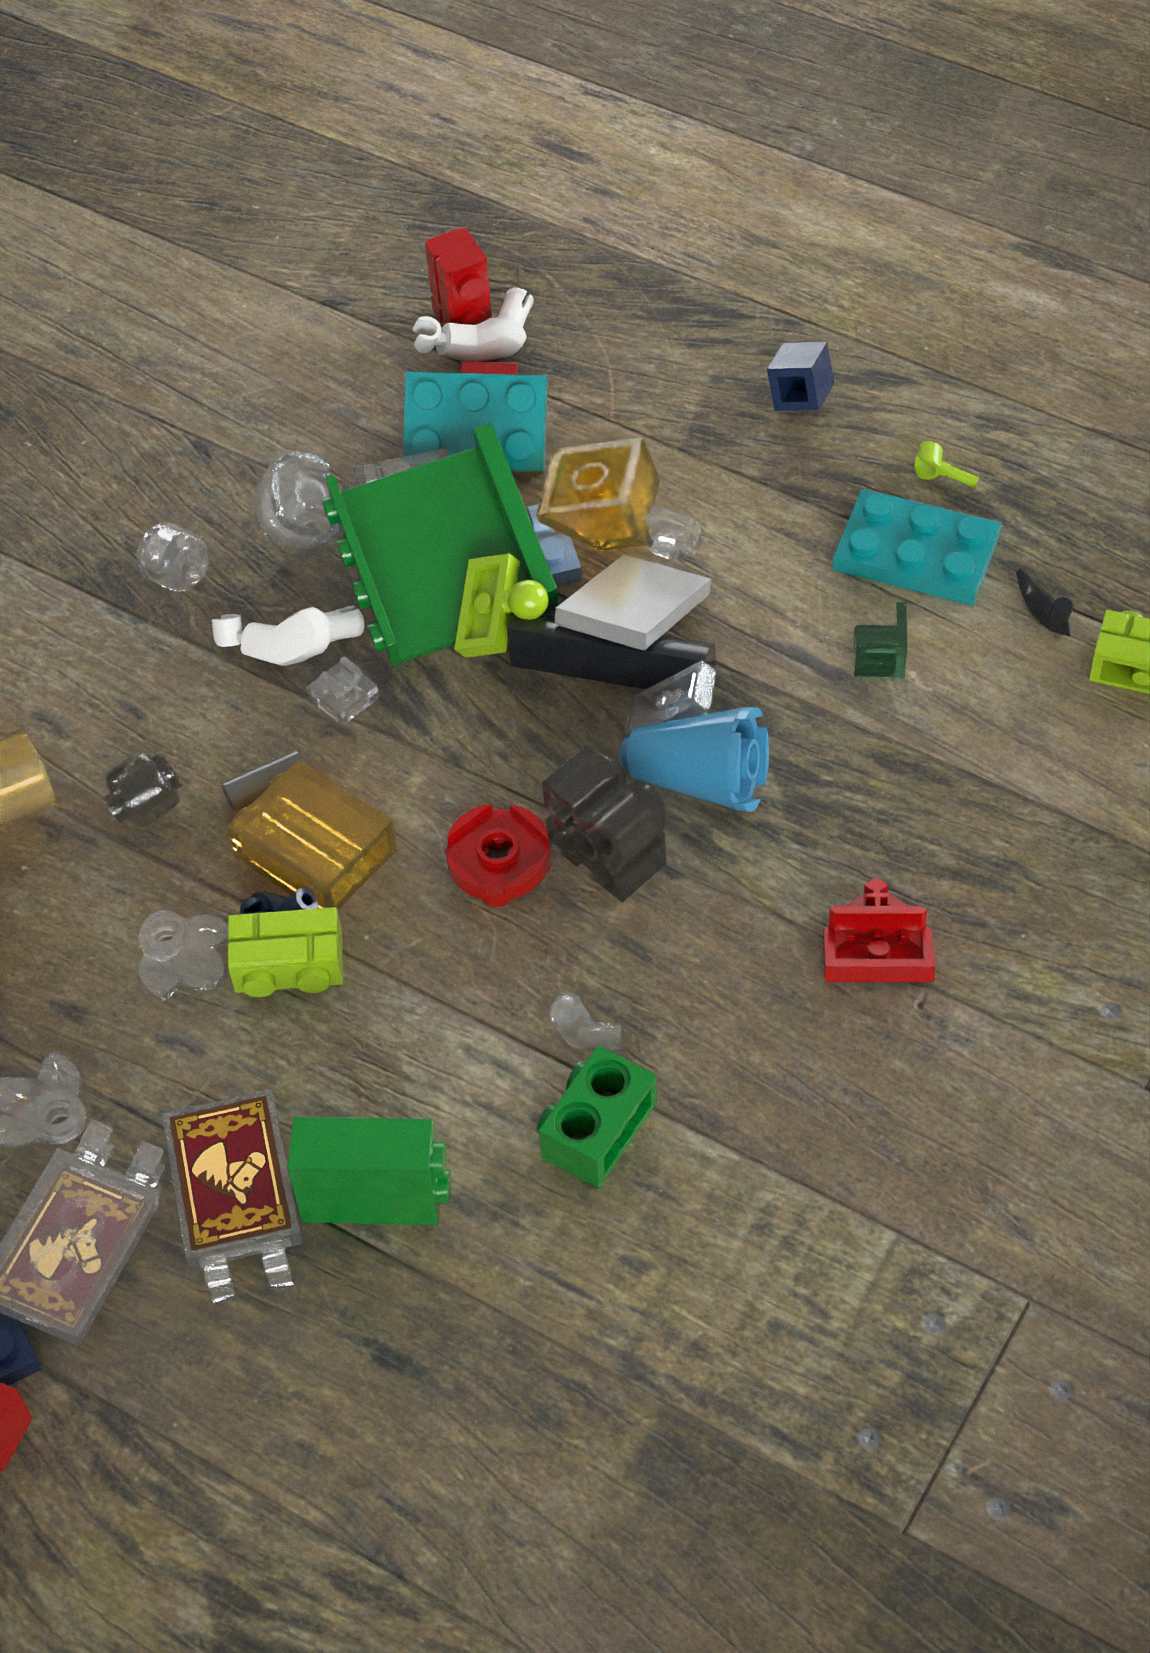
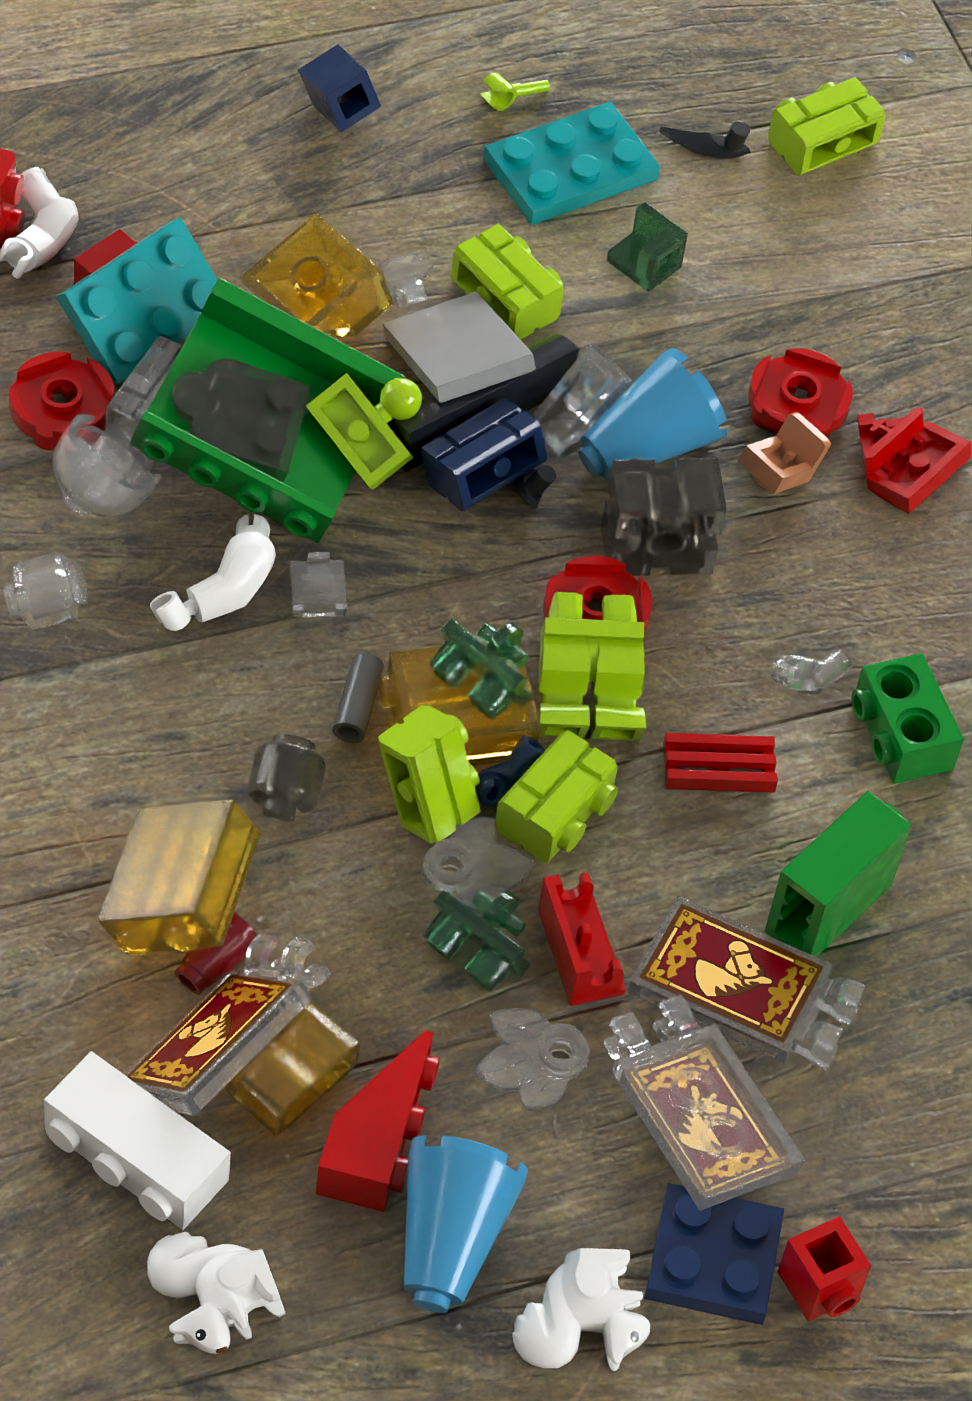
camera: 60 degrees left, 0 degrees up
(117, 993) = (498, 953): none -> clear green hips
(168, 1056) = (579, 941): none -> red hinge
(206, 856) = (430, 773): none -> lime brick
(330, 811) = (500, 681): none -> clear green hips
(357, 427) = (55, 373): none -> red plate
(408, 1001) = (719, 755): none -> red tile
(415, 873) = (595, 652): none -> lime hips
(420, 535) = (244, 413): none -> clear smoke plate
(553, 686) = (484, 454): none -> dark blue brick
(584, 726) = (534, 483): none -> black bar
(743, 588) = (508, 280): none -> lime brick
(770, 862) = (788, 457): none -> nougat bracket
(846, 854) = (799, 369): none -> red plate

